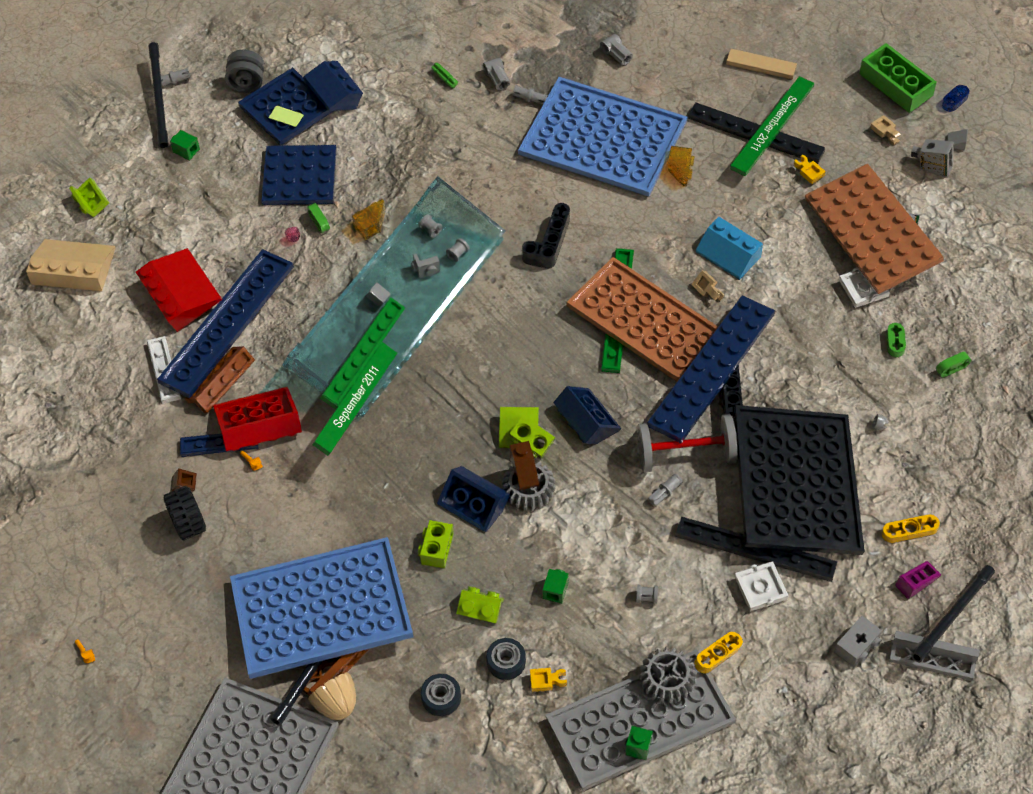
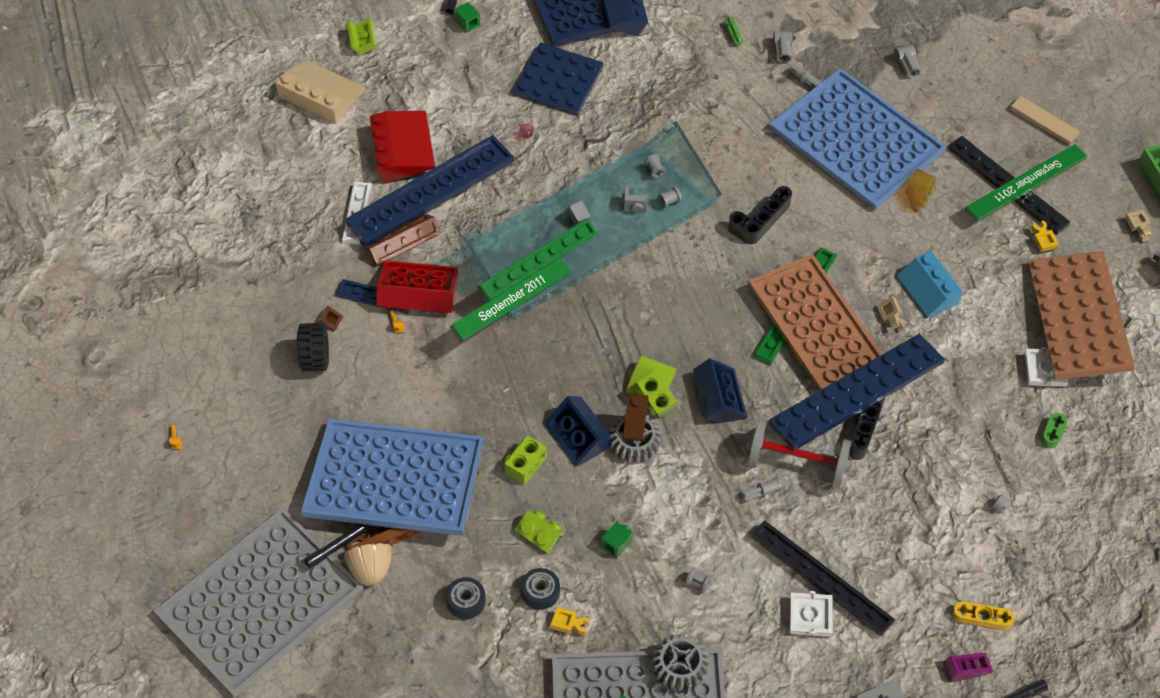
camera: 20 degrees right, 0 degrees up
(286, 116) = (569, 20): yellowish green sticker -> none
(318, 218) = (556, 123): bright green beam -> none
(369, 220) = (603, 141): clear yellow slope -> none
(720, 644) = (733, 666): yellow beam -> none
(797, 480) = (891, 528): black plate -> none
(953, 364) = (1100, 474): bright green beam -> none

